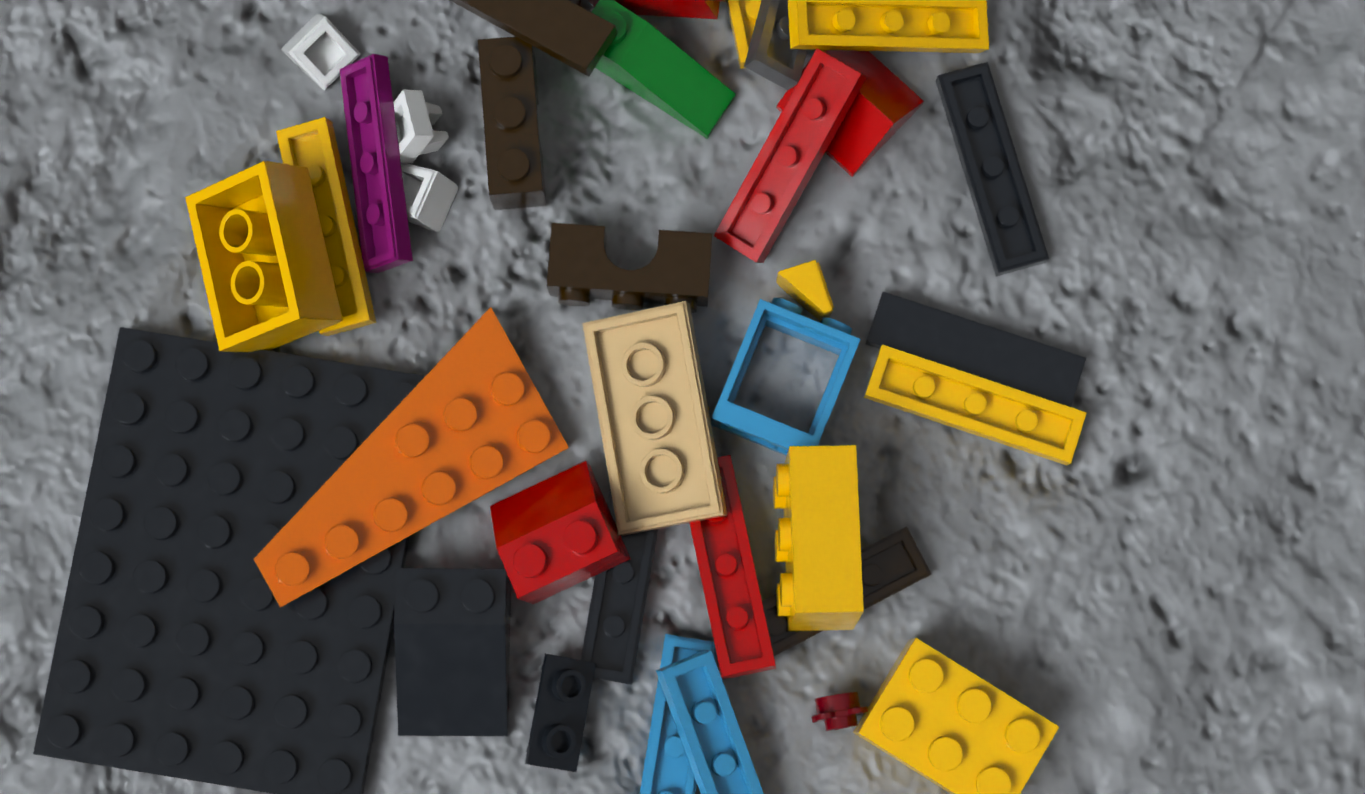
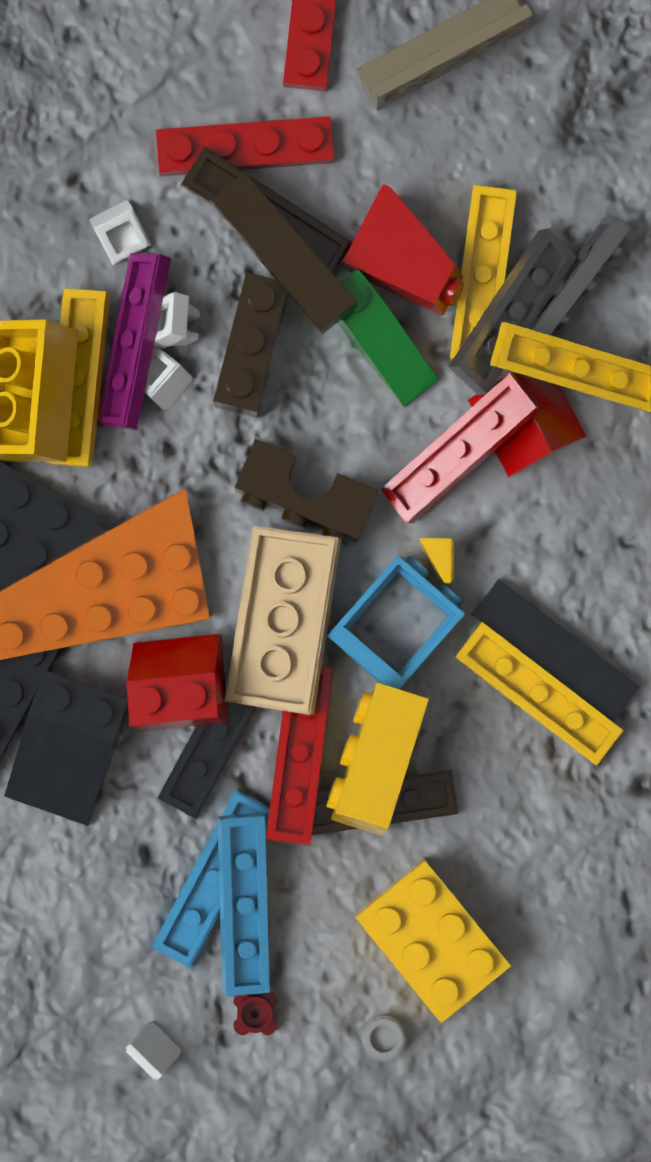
camera: 20 degrees right, 5 degrees up
(560, 713) = (133, 822): black hinge -> none
(838, 710) = (348, 894): dark red plate -> none
(992, 169) = (621, 509): black tile -> none

